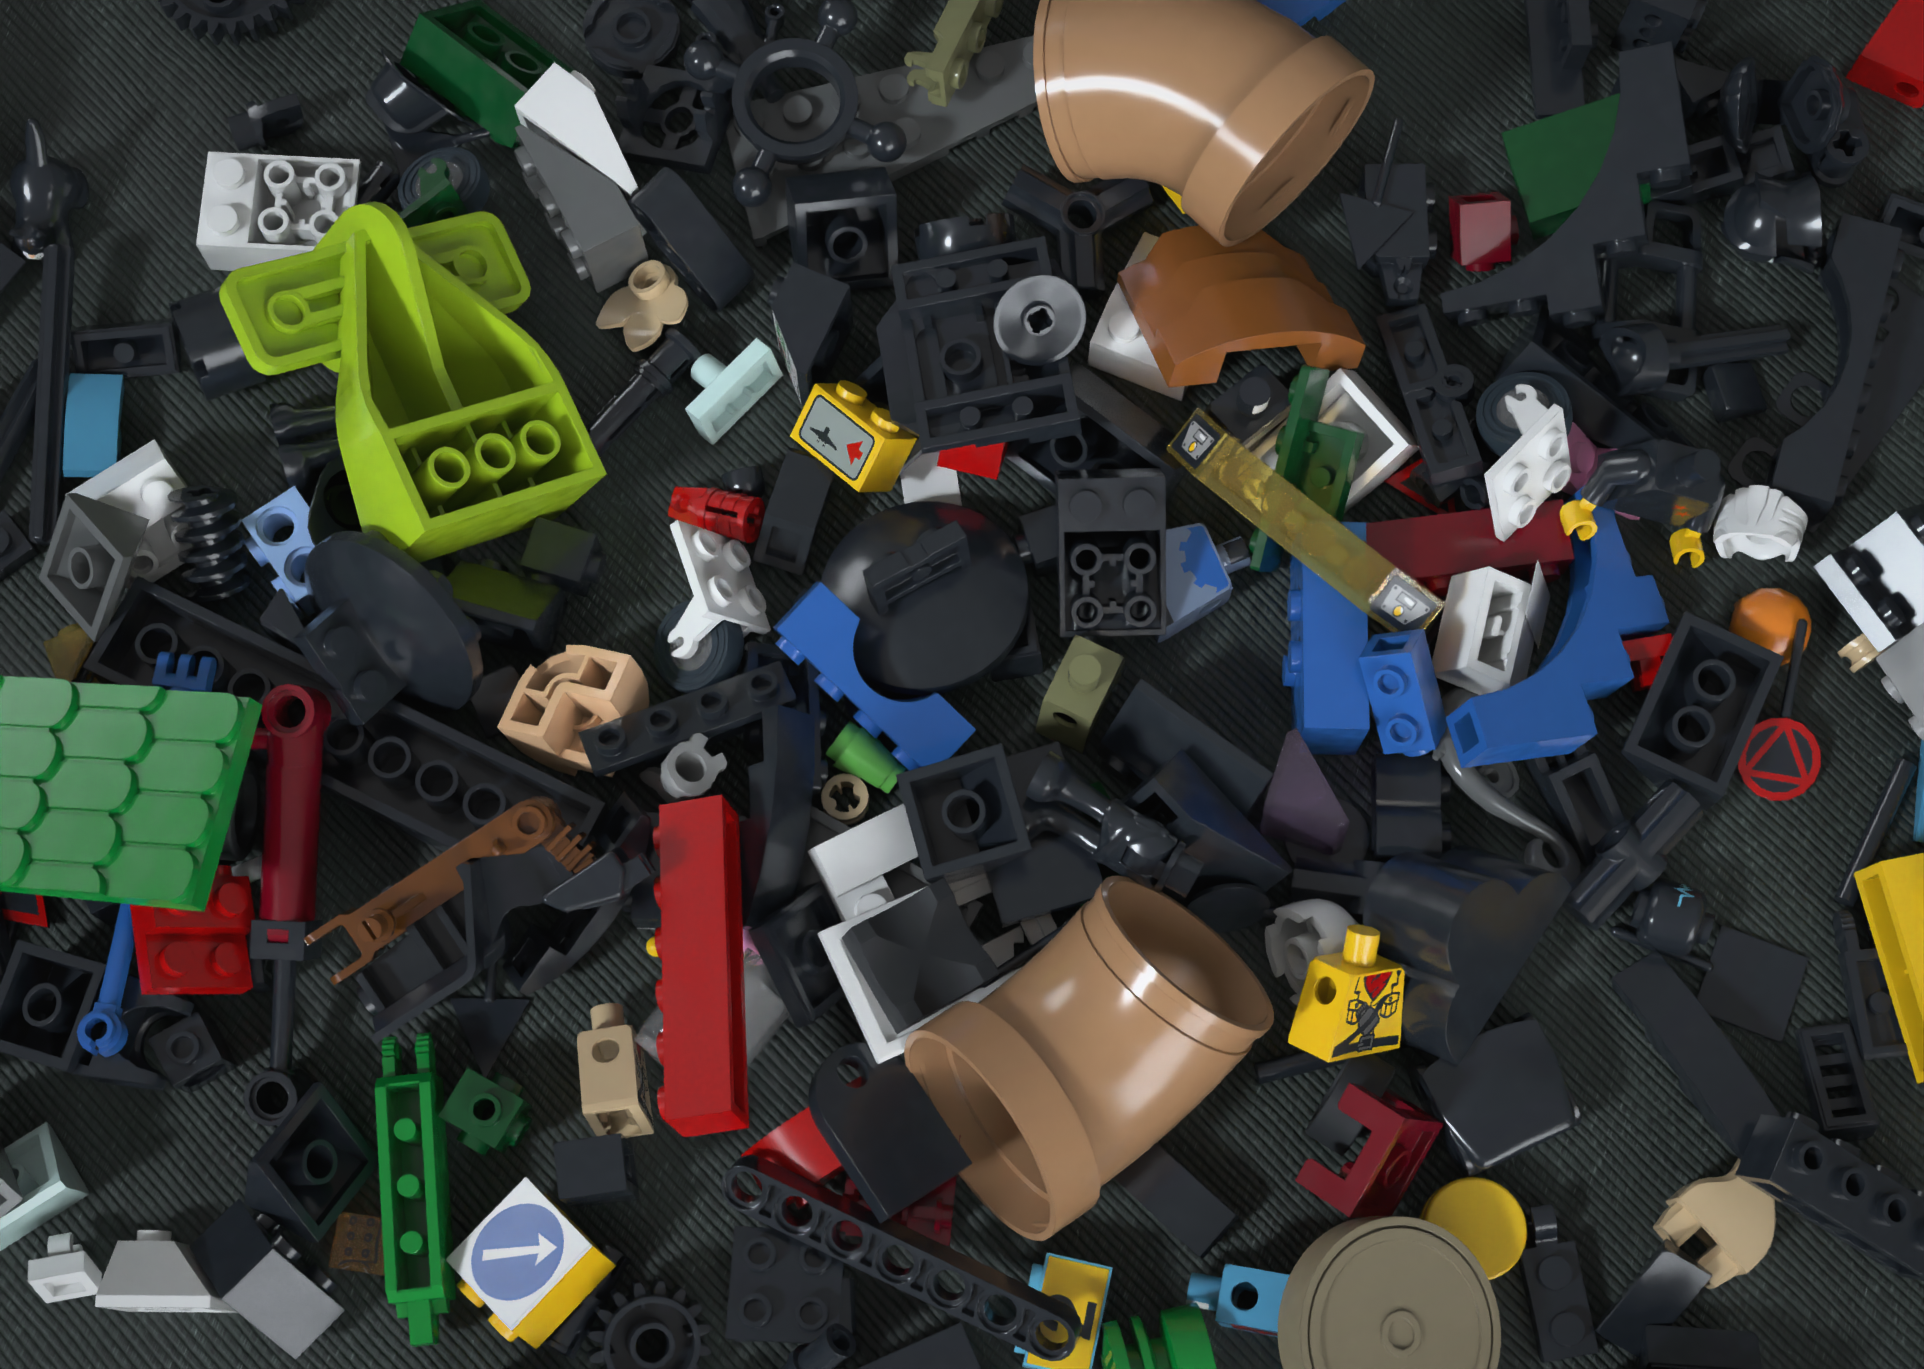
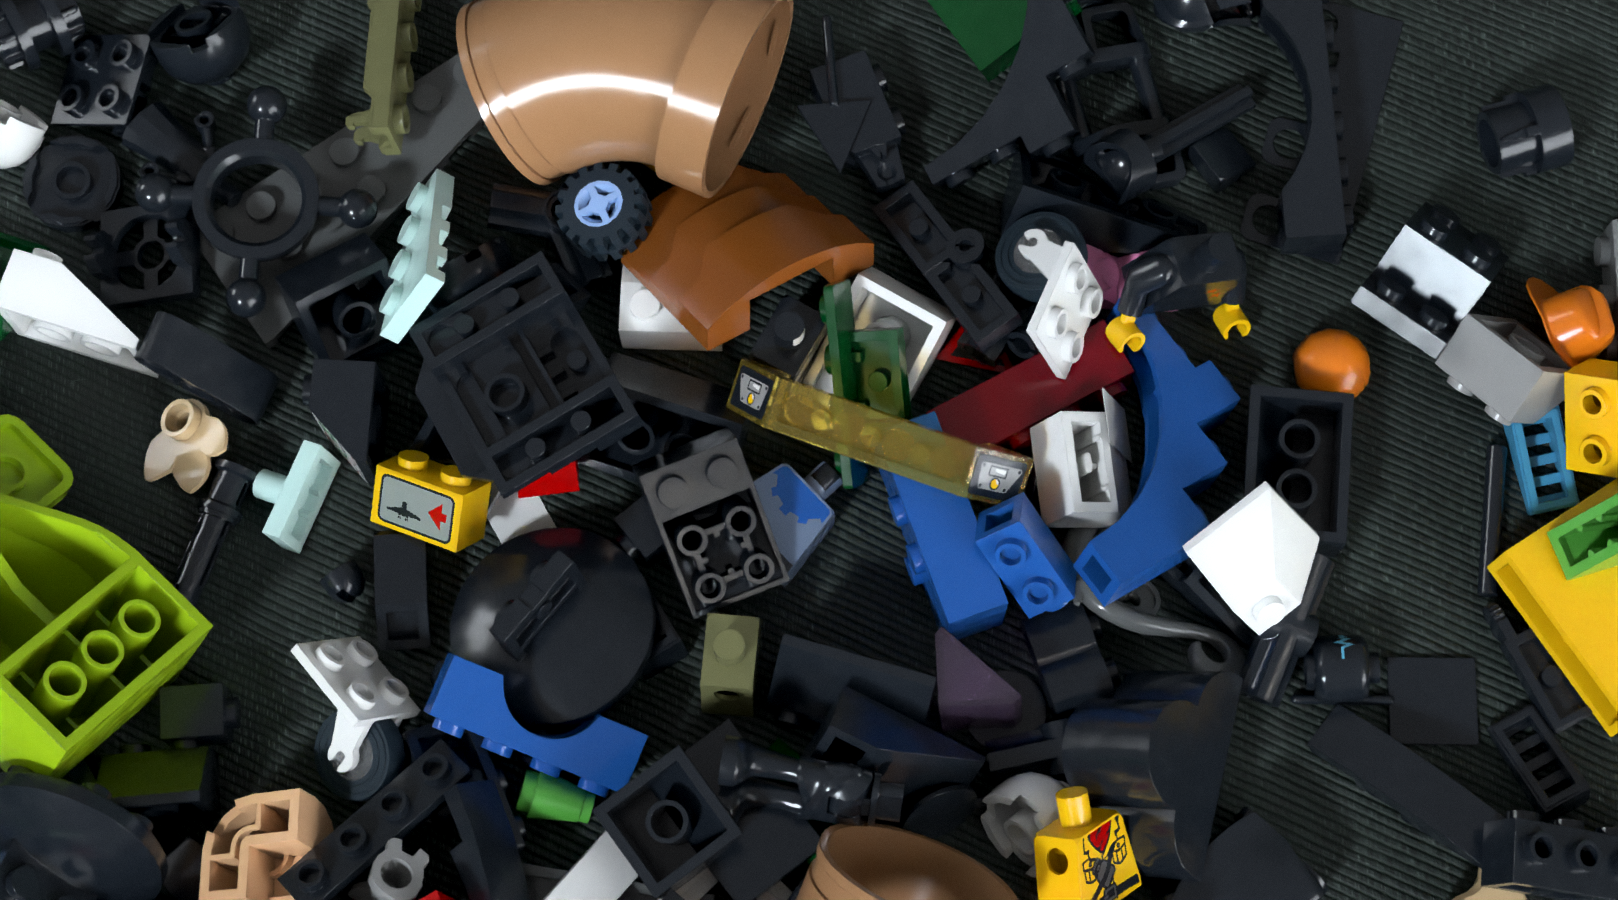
camera: 20 degrees left, 0 degrees up
(582, 211) = (93, 378): dark grey slope -> none
(708, 510) = (318, 620): red hinge -> none
(860, 794) = (561, 833): tan bush -> none
(922, 211) = (422, 253): none -> light aqua wing
(1049, 337) = (580, 343): piece -> none
(1099, 218) = (586, 206): none -> black wheel
(1481, 230) = (939, 92): dark red brick -> none
(1630, 774) = (1257, 557): none -> white slope
(1645, 659) = (1231, 439): red tile -> none
(1759, 524) = (1287, 276): white hair -> none
(1780, 752) = (1383, 479): piece -> none
(1860, 652) = (1418, 362): tan bush -> none

